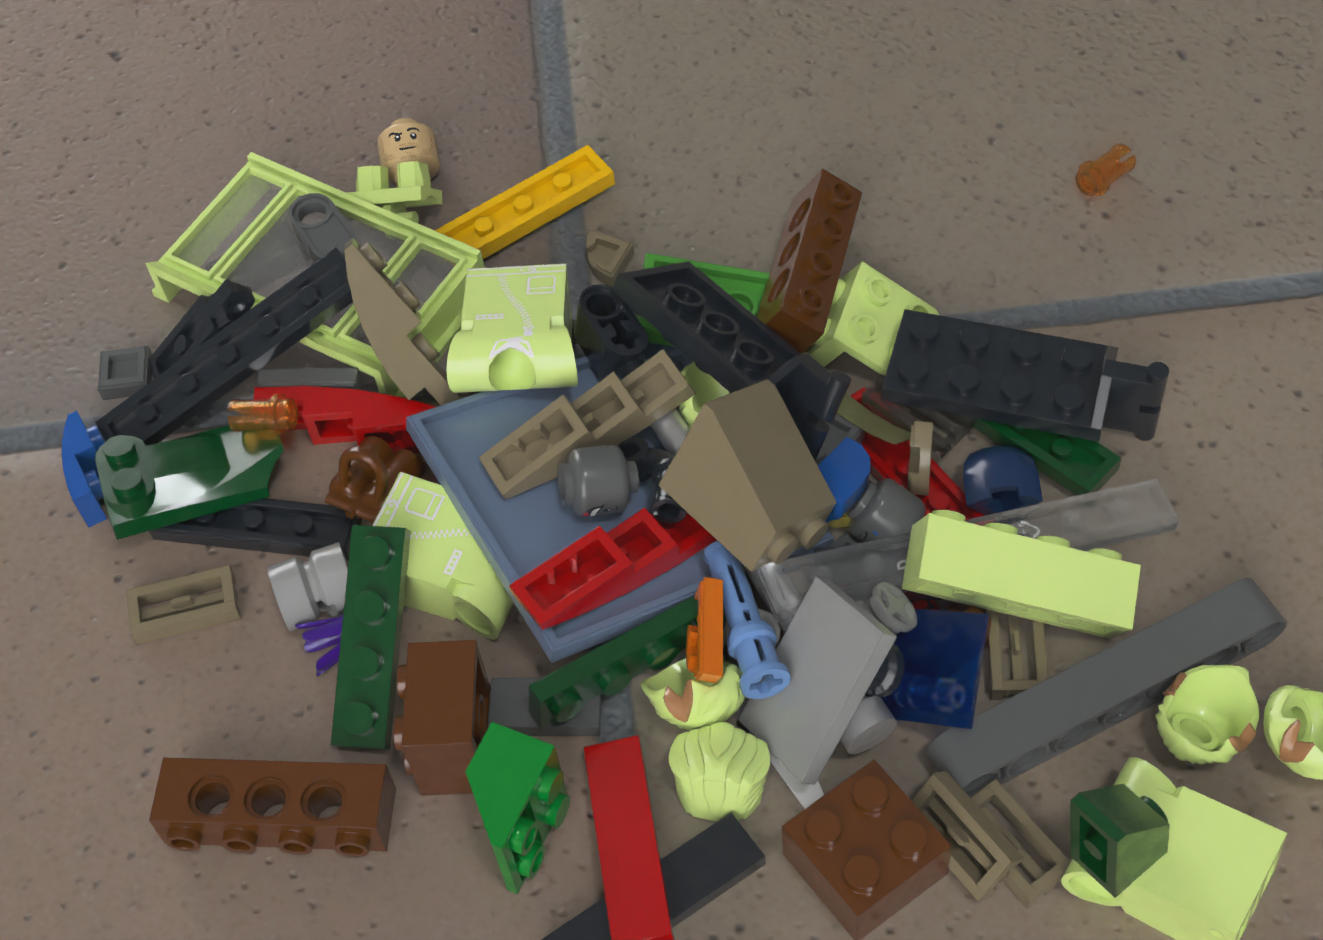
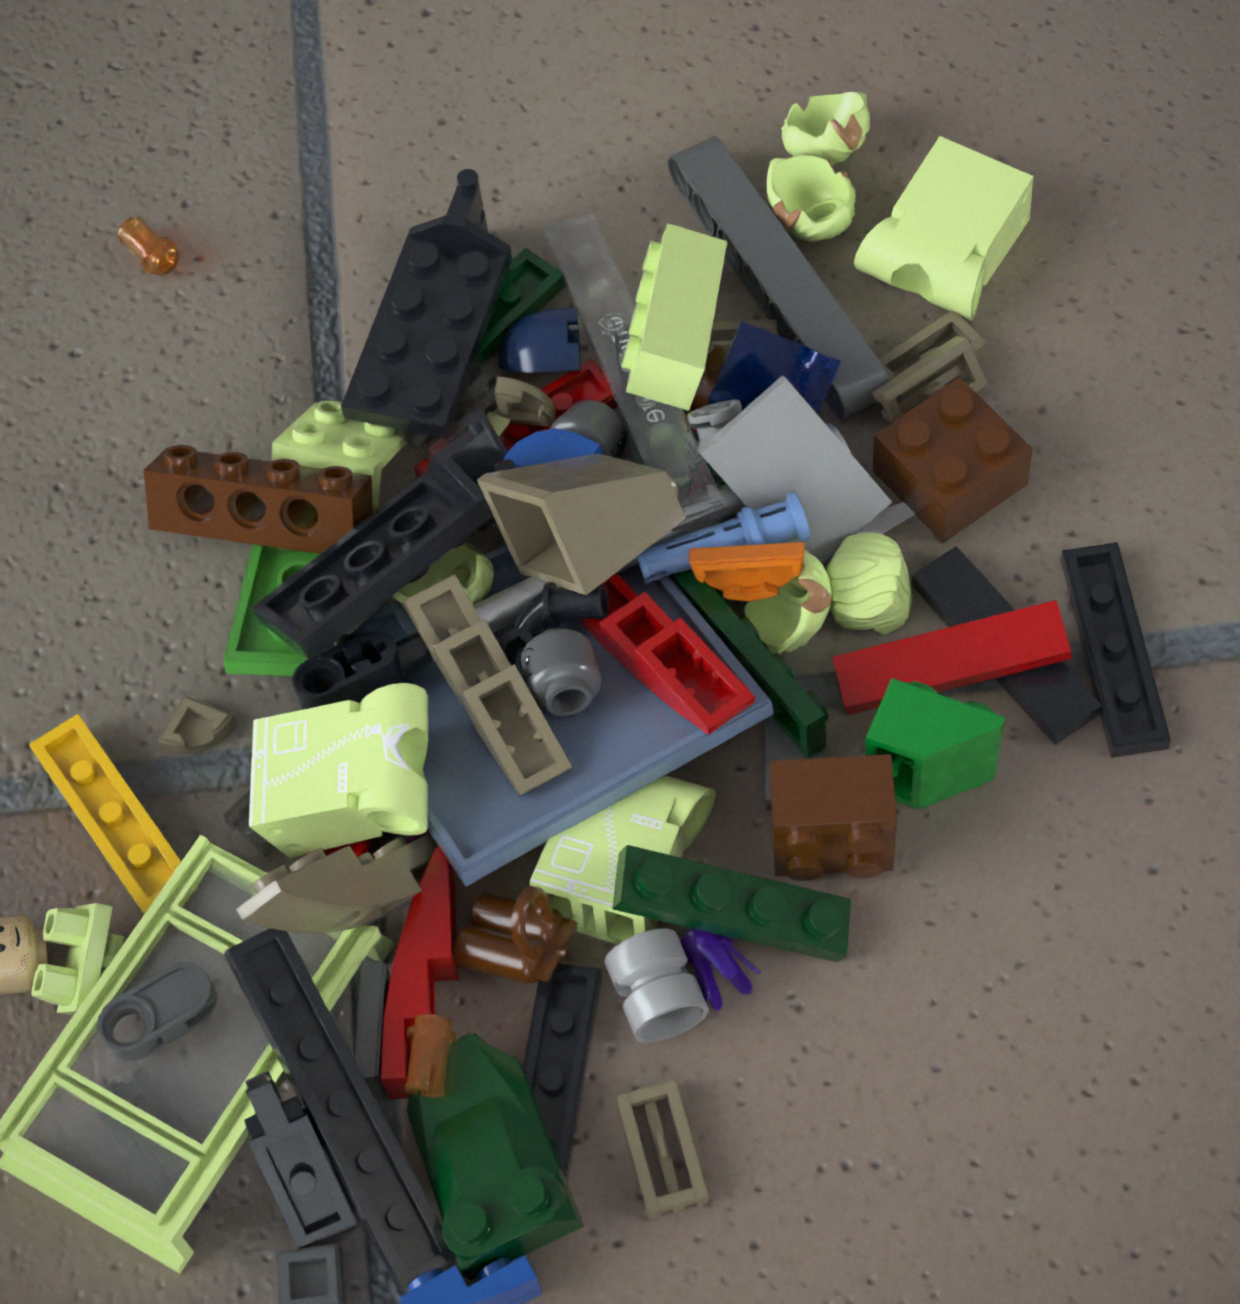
camera: 90 degrees left, 5 degrees up
(194, 785) = (916, 1092): reddish brown brick -> none
(1116, 835) = (962, 237): dark green slope -> none

